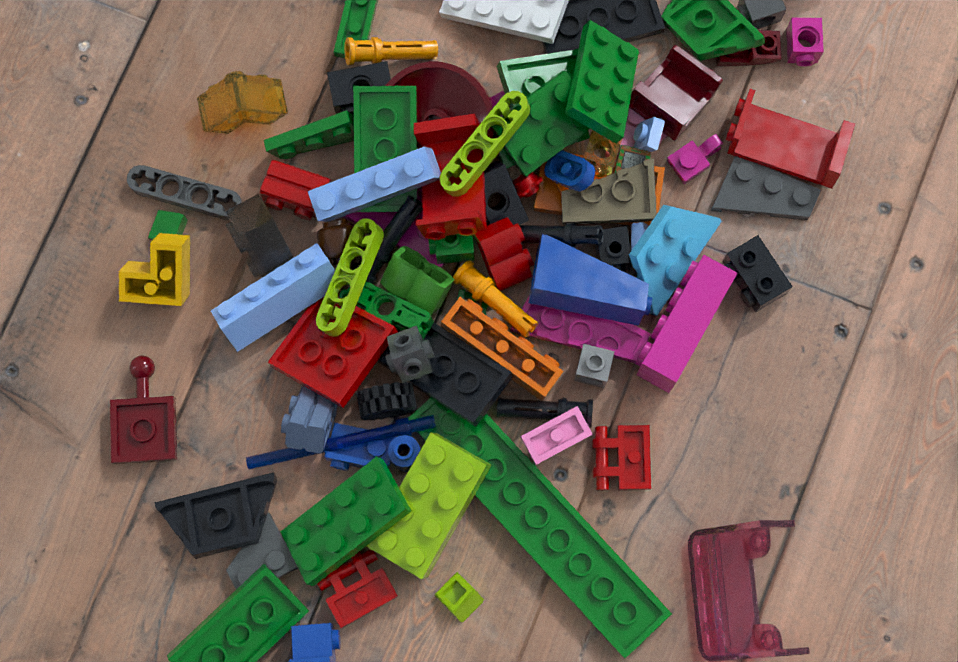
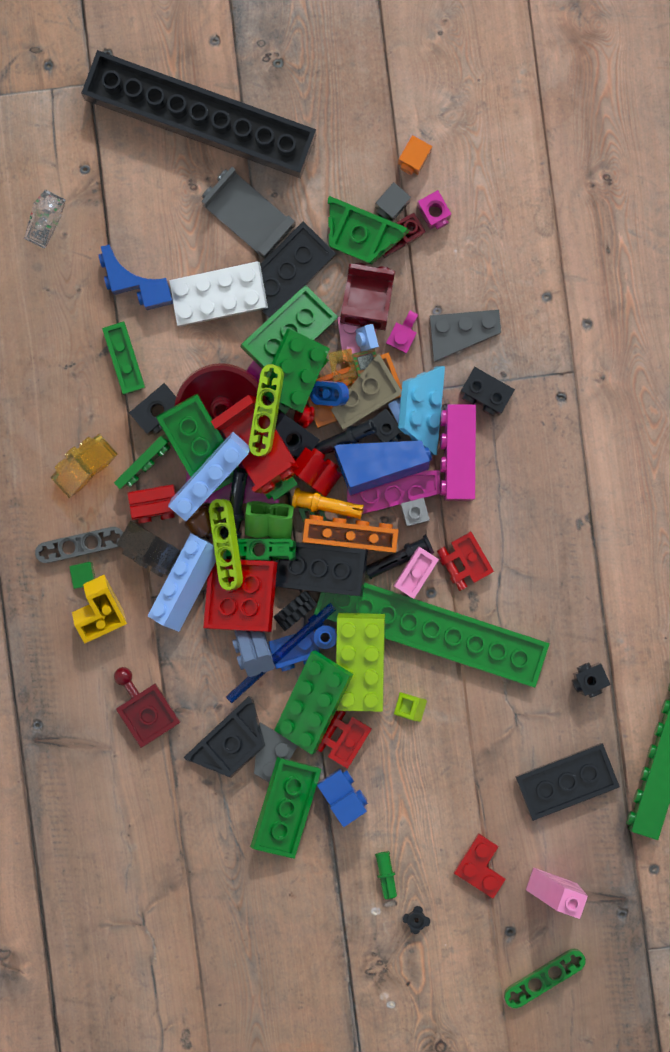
camera: 30 degrees left, 10 degrees up
(378, 50) = (152, 378): light orange pin -> none
(409, 354) = (297, 578): dark grey brick -> none
(602, 82) = (317, 320): green plate -> none
(727, 594) = (578, 611): clear pink windscreen -> none
(788, 143) = (460, 288): panel -> none

